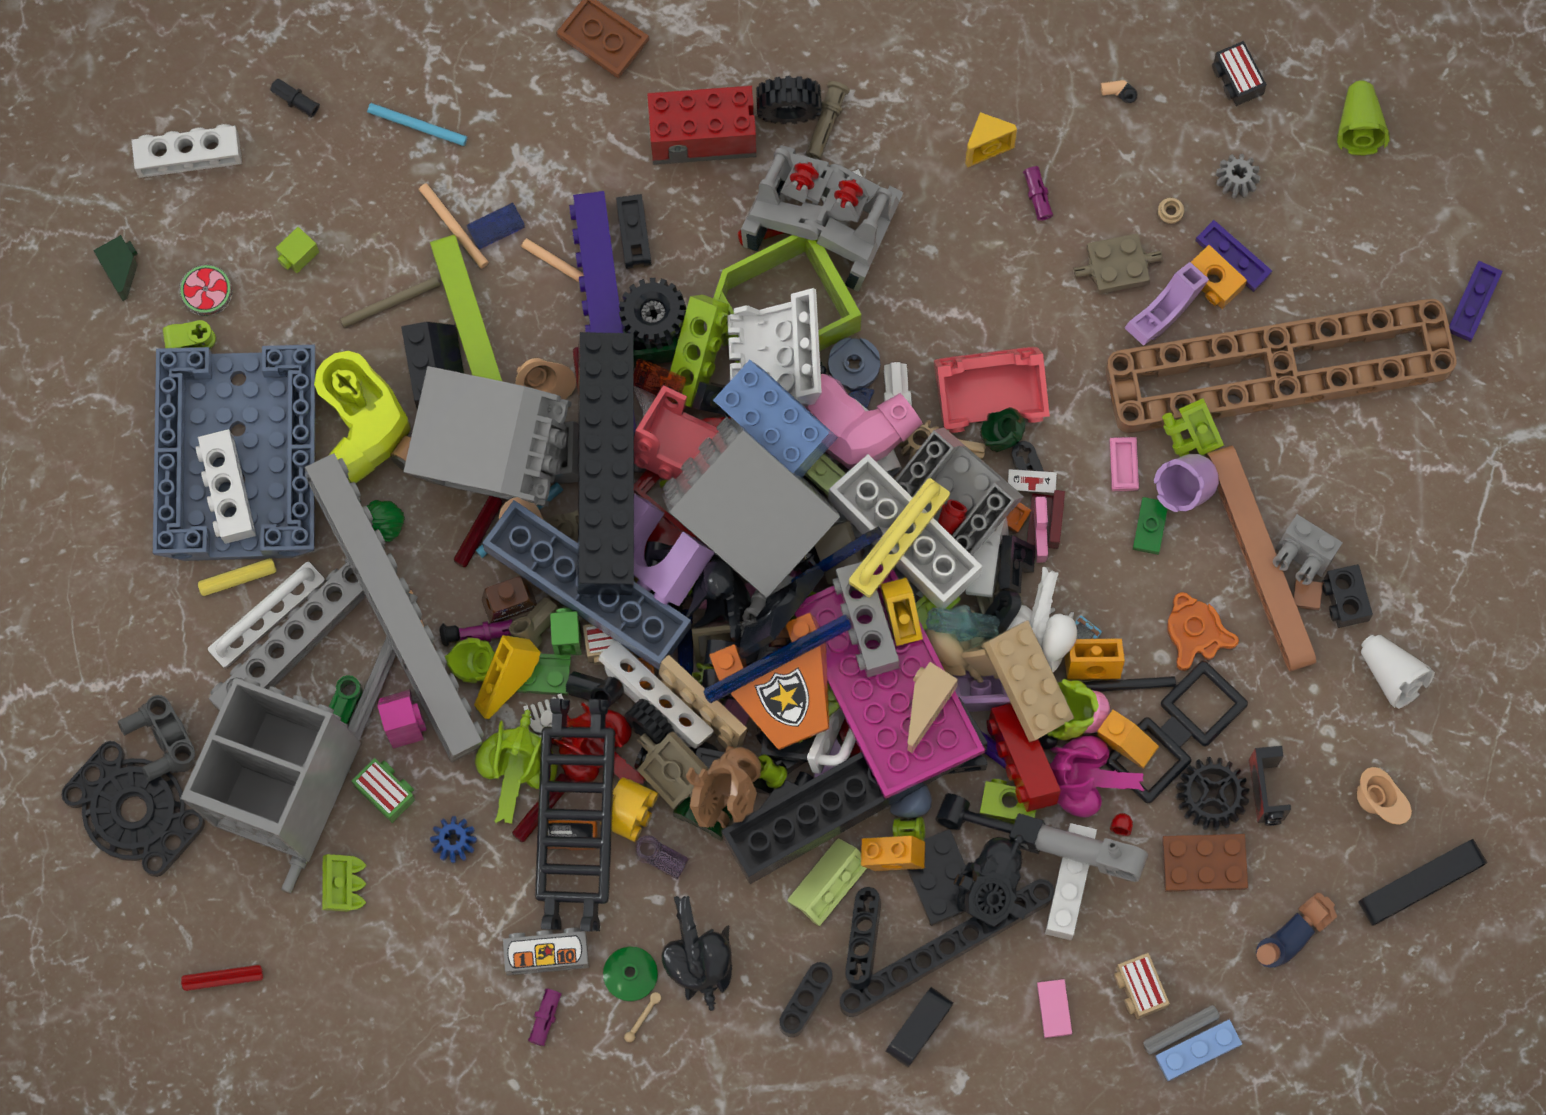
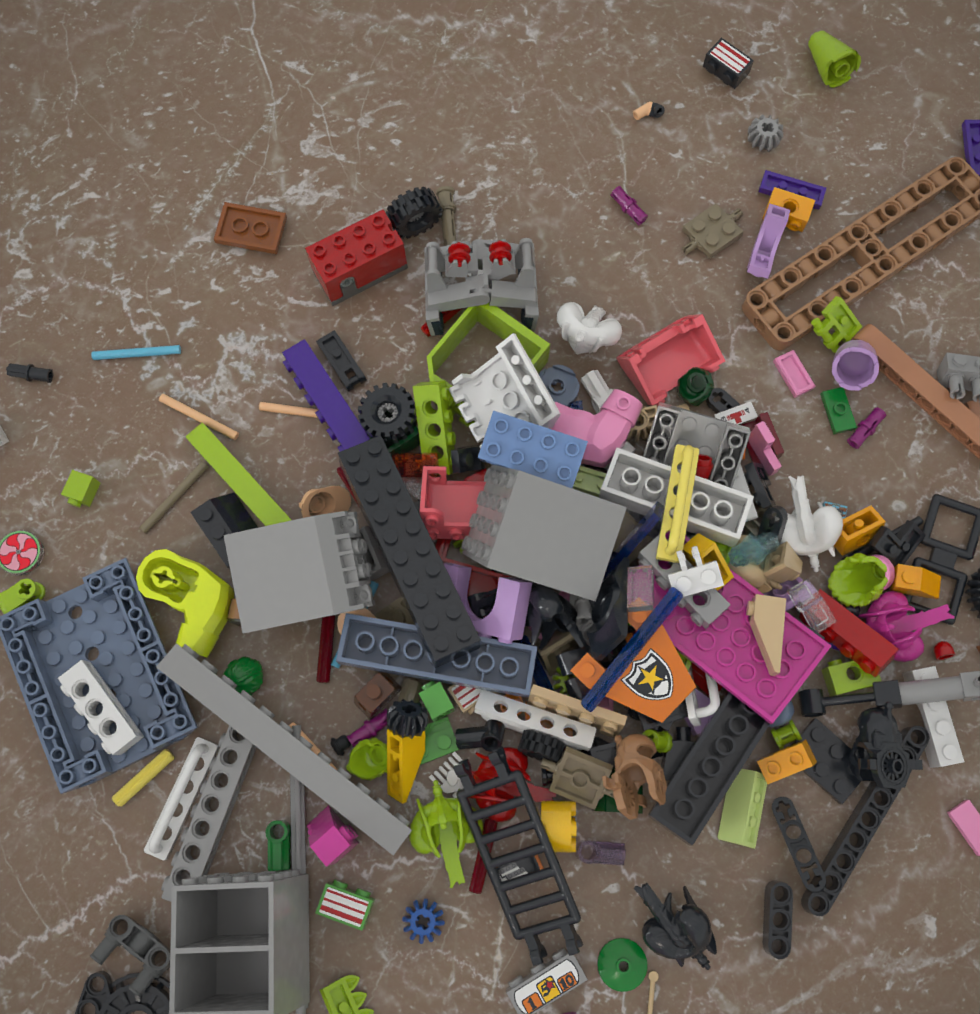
camera: 25 degrees left, 0 degrees up
(495, 226) = (232, 402): clear blue tile -> none
(527, 632) = (407, 718): none -> black gear
(816, 603) = (640, 588): none -> clear tile
(875, 618) = (695, 578): none -> white hinge
(913, 318) = (587, 332): none -> white hair
(919, 1027) = (879, 897): black beam -> none
(989, 139) = (576, 178): yellow slope -> none
(995, 710) = (812, 606): none -> clear slope
(1028, 681) = (825, 571): tan plate -> none
(1129, 698) = (900, 546): none -> black plate
(1169, 558) = (866, 428): none -> magenta pin
(1174, 204) = (730, 172): tan plate -> none
(1196, 629) = (914, 473): orange tile -> none

